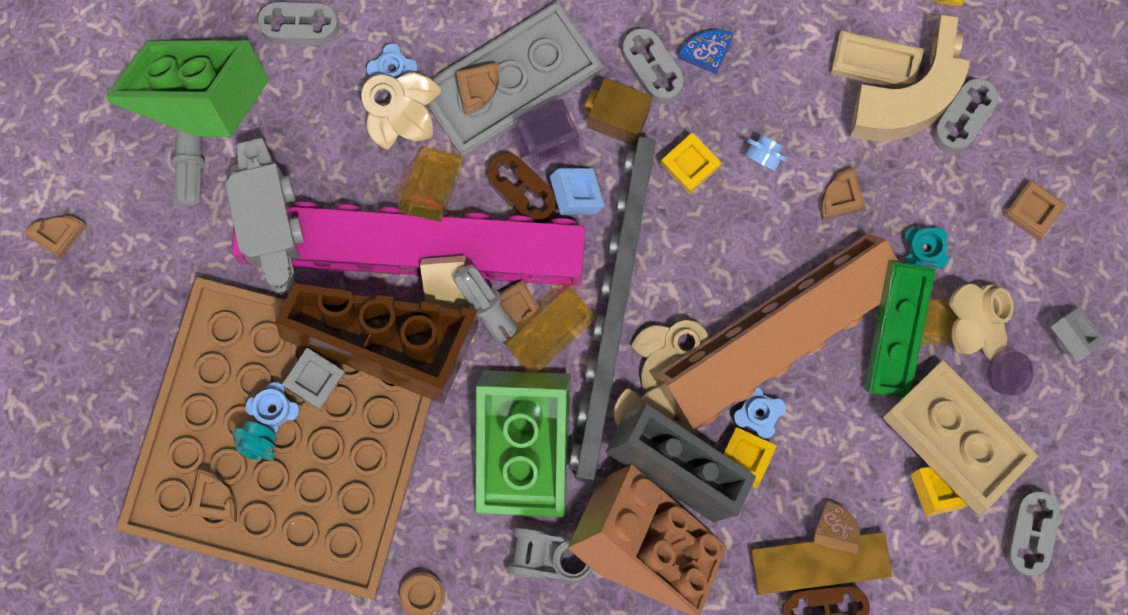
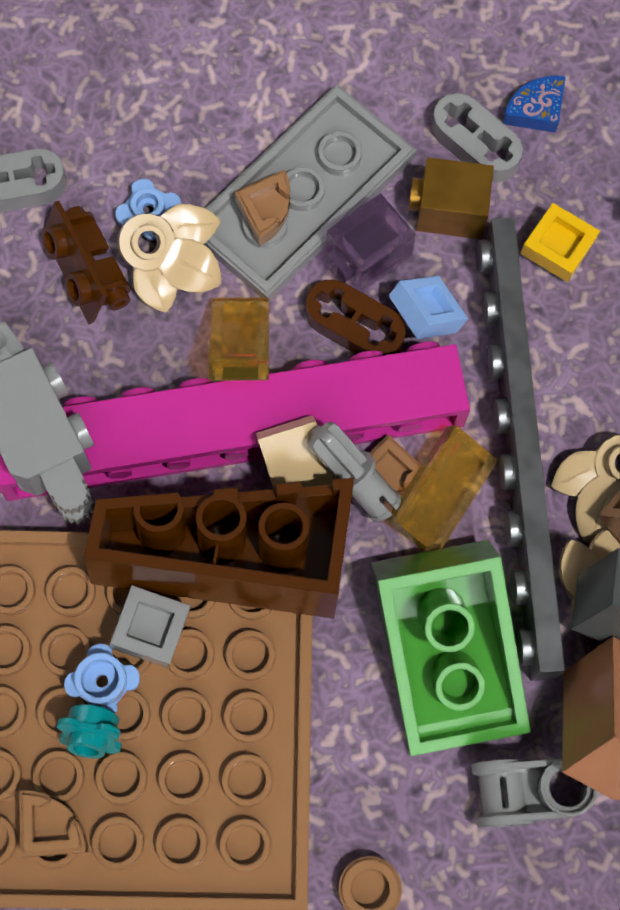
camera: 20 degrees left, 5 degrees down
(331, 82) = (73, 241): none -> reddish brown hinge

